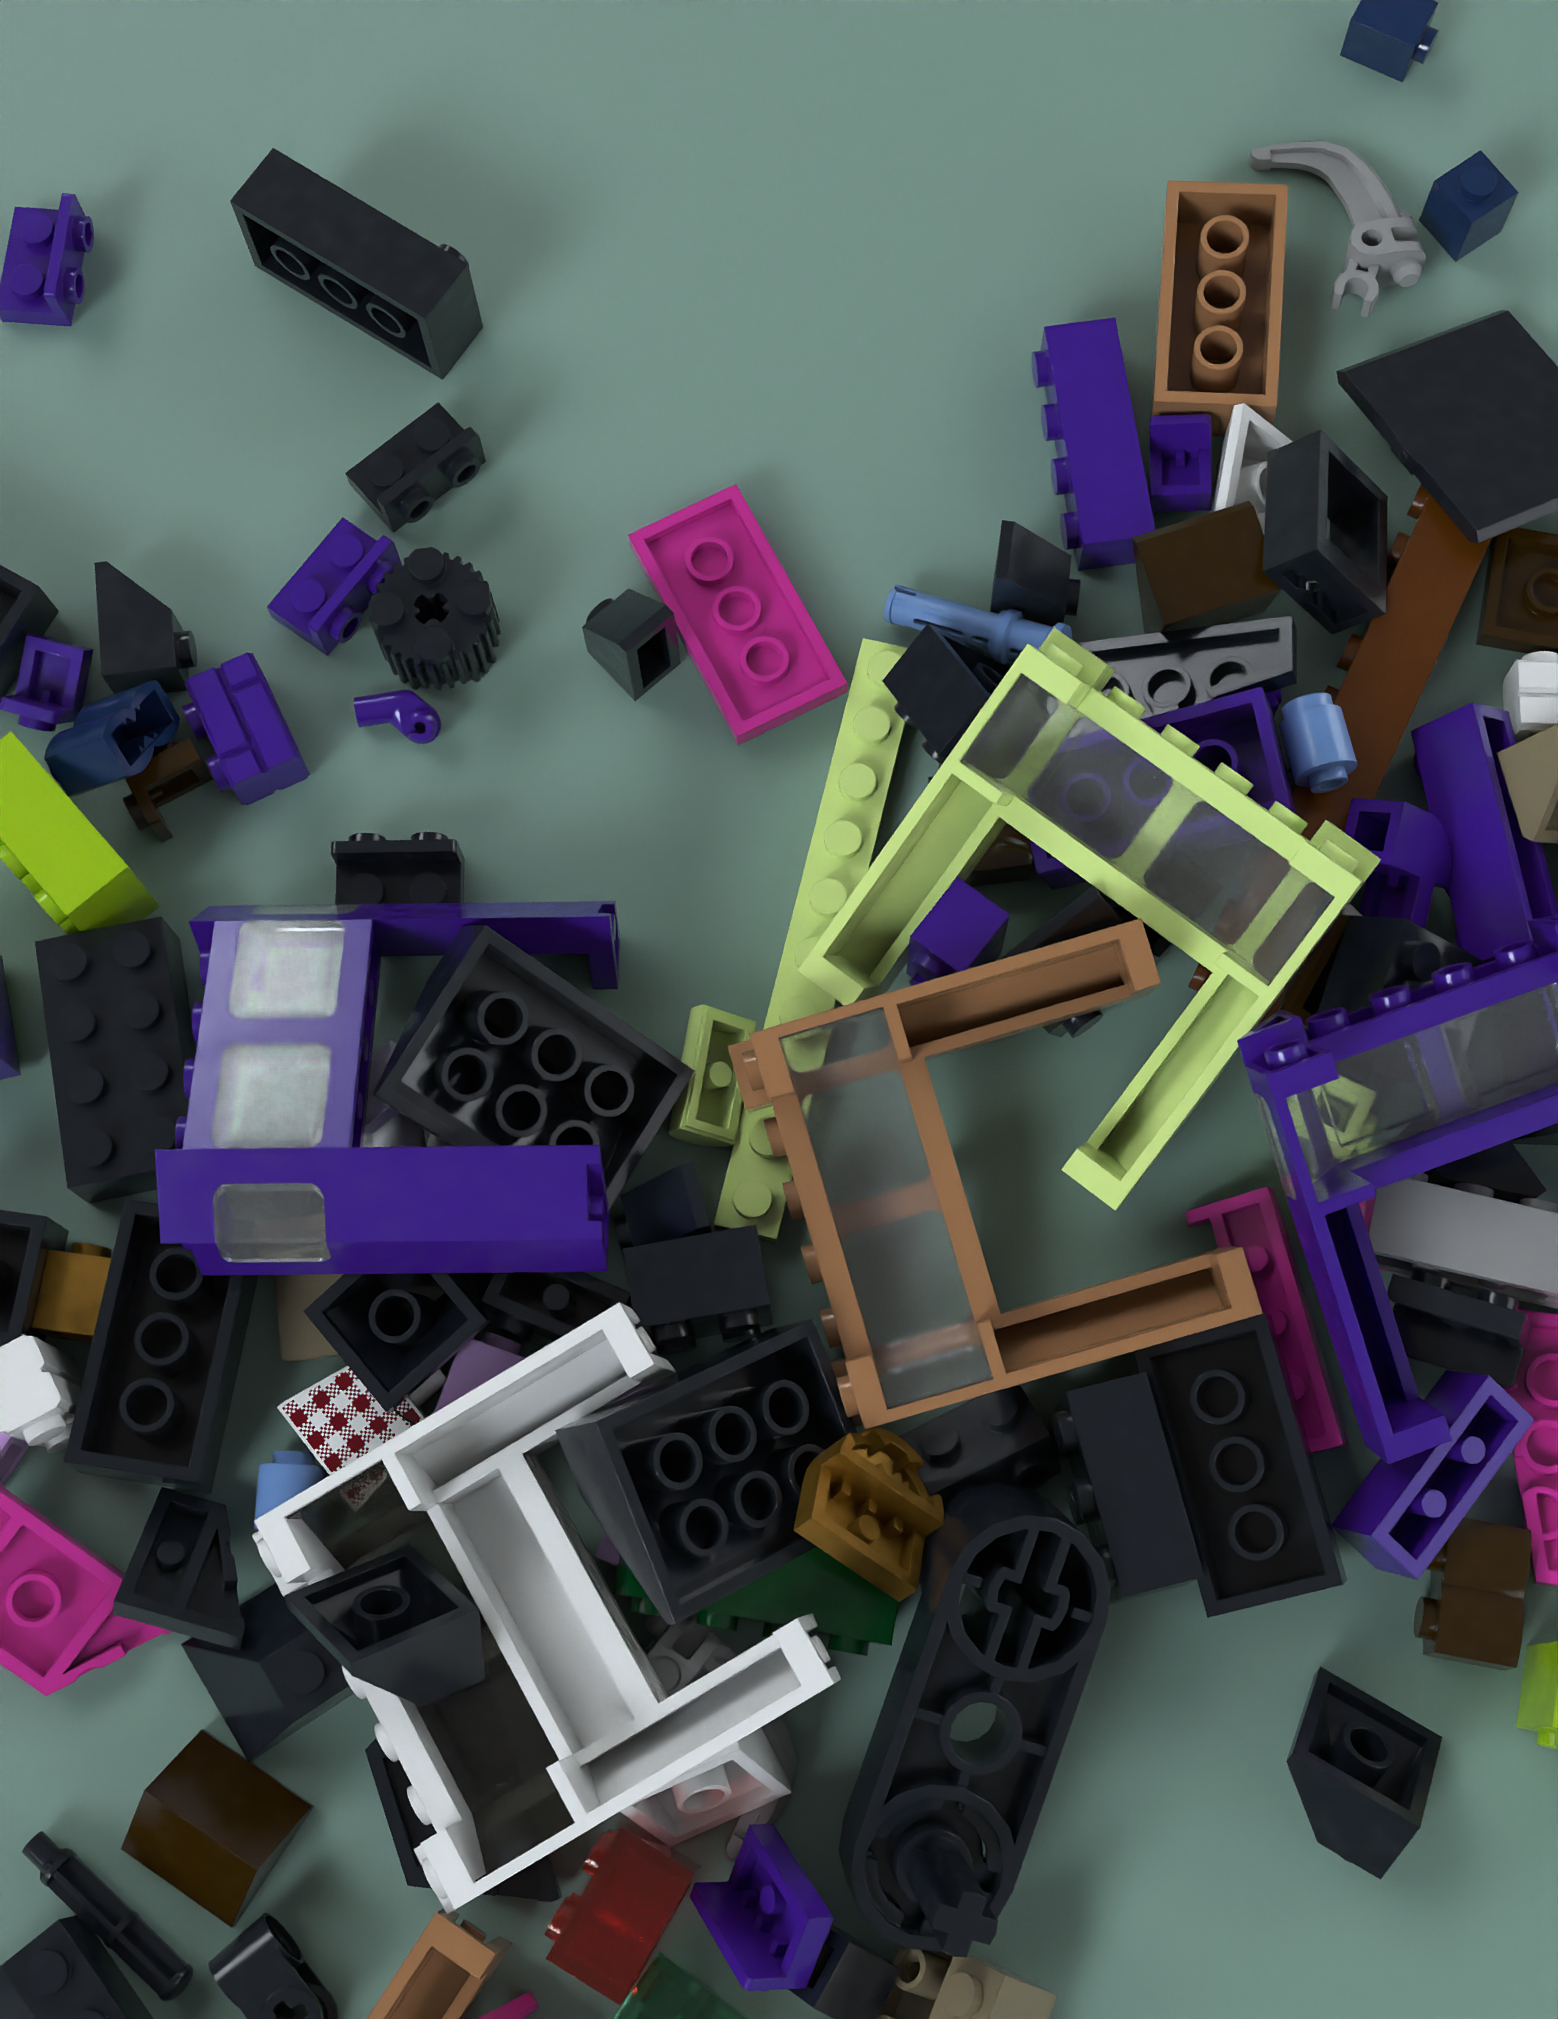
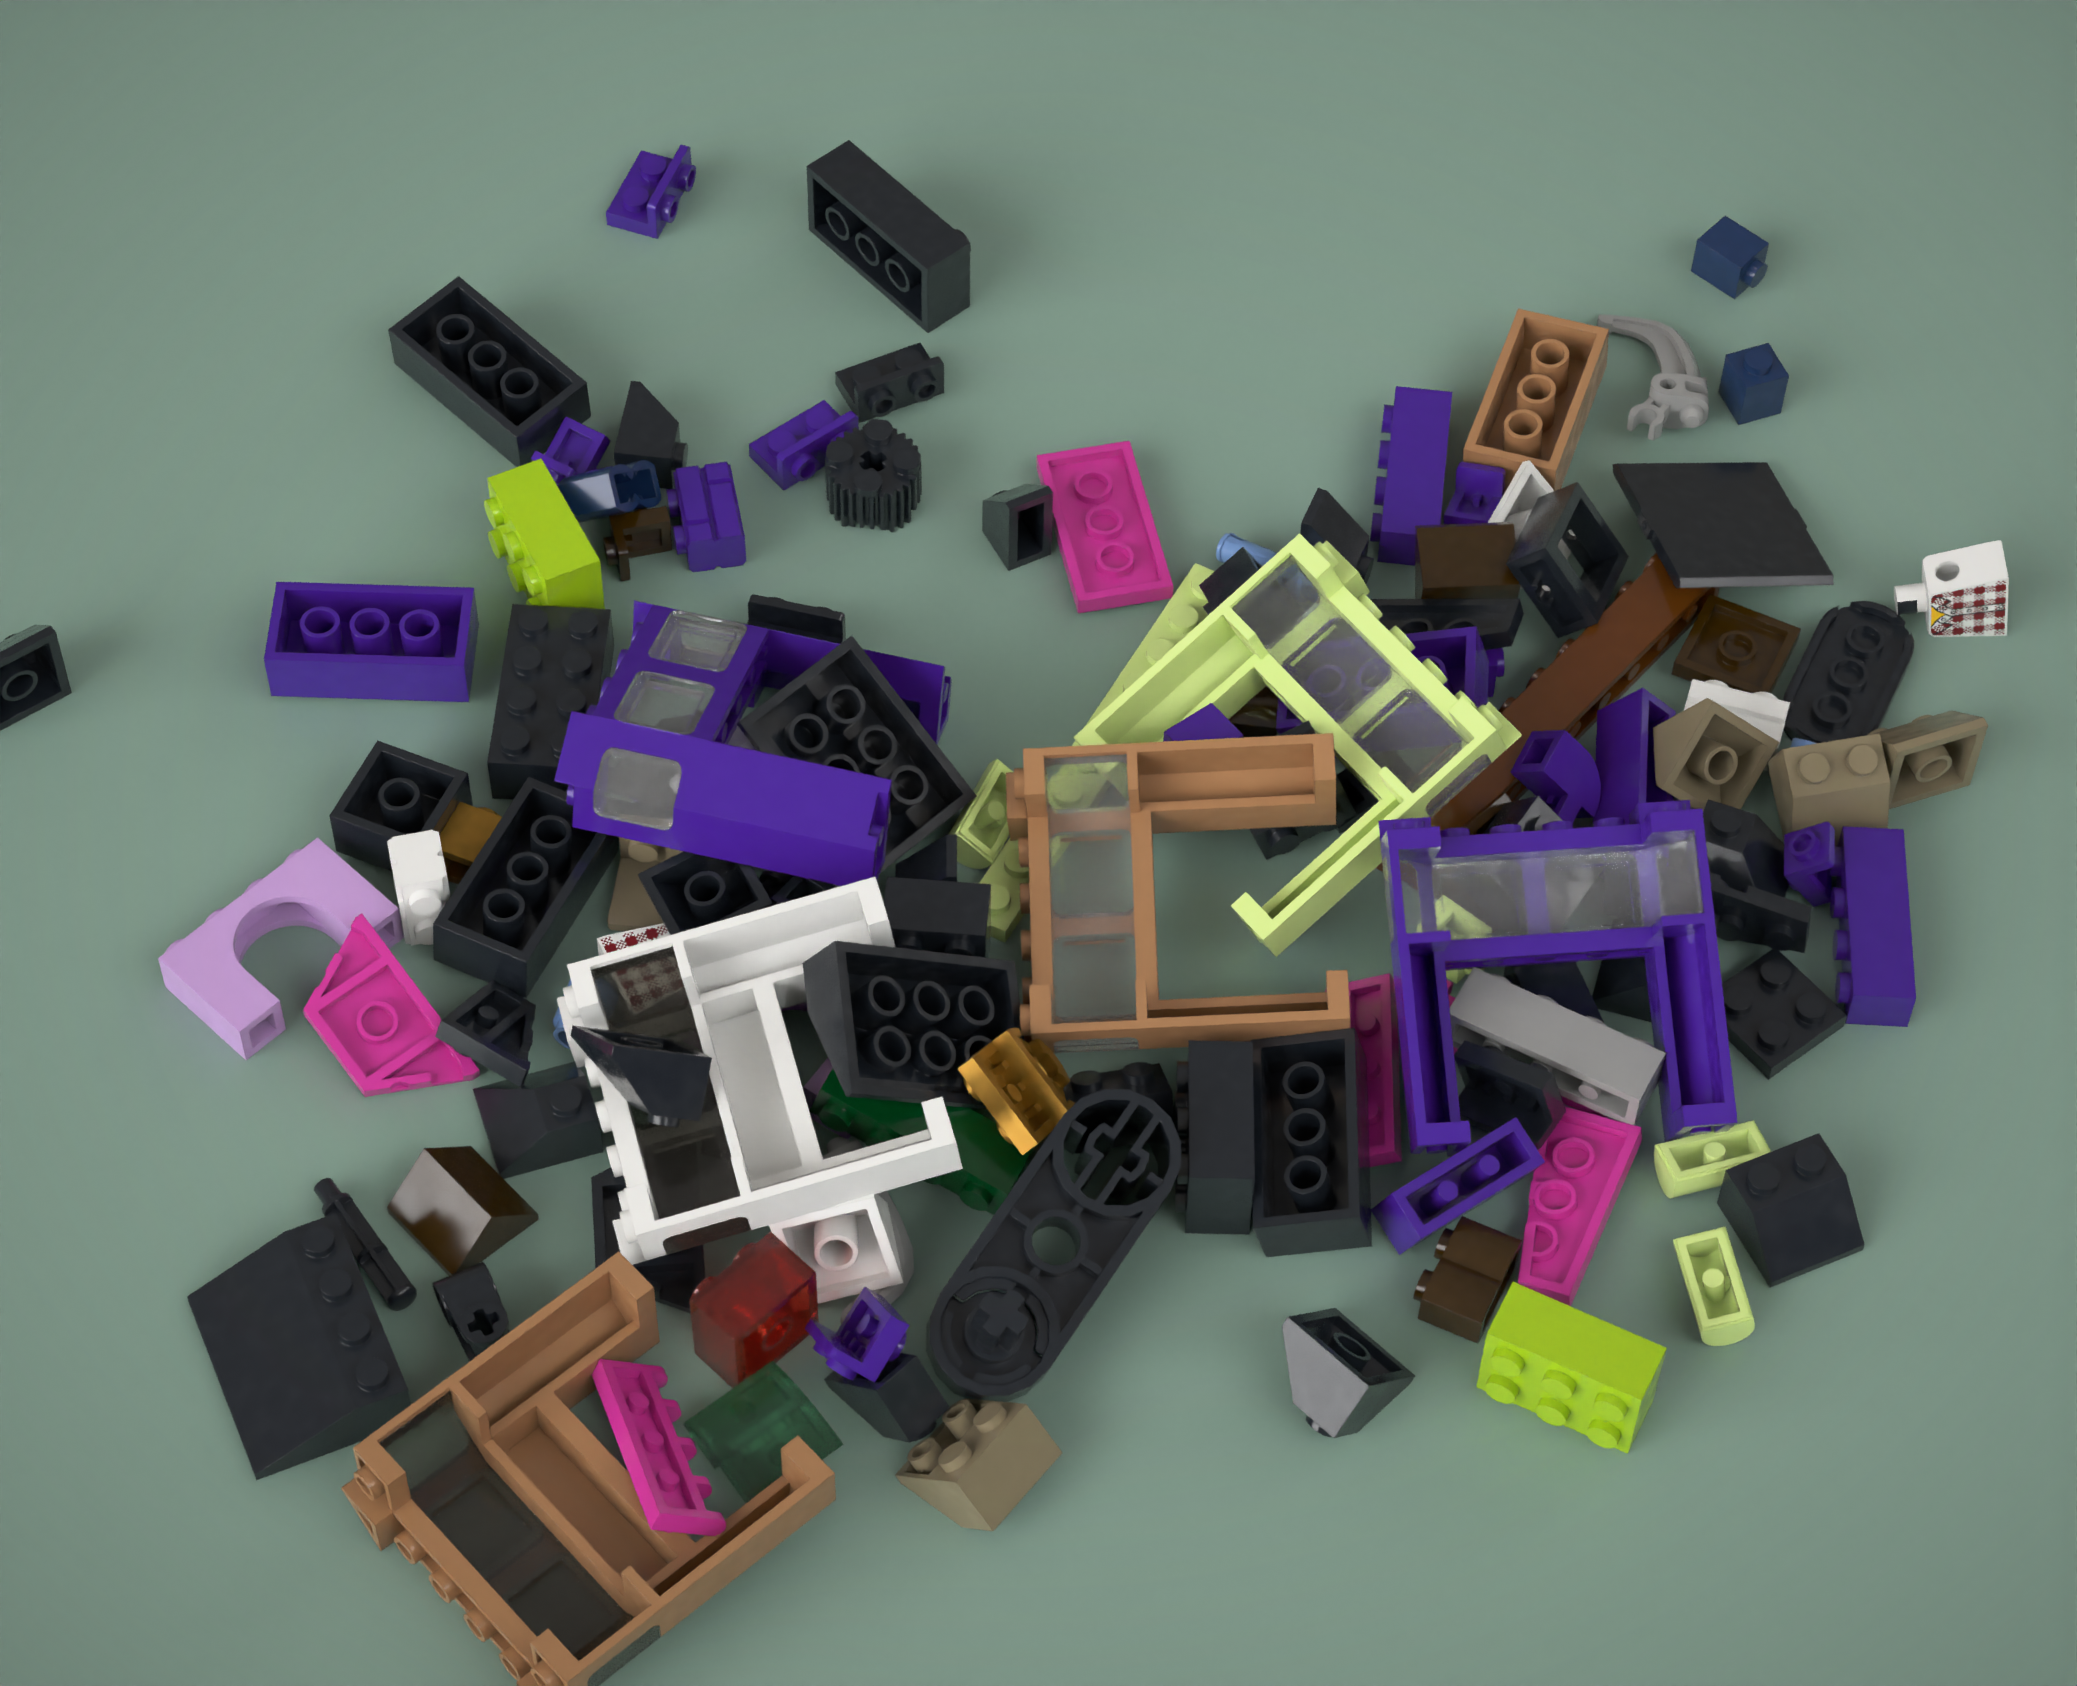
camera: 10 degrees right, 20 degrees down
(401, 709) = (829, 533): dark purple arm -> none
(1317, 742) = (1516, 686): medium blue brick -> none

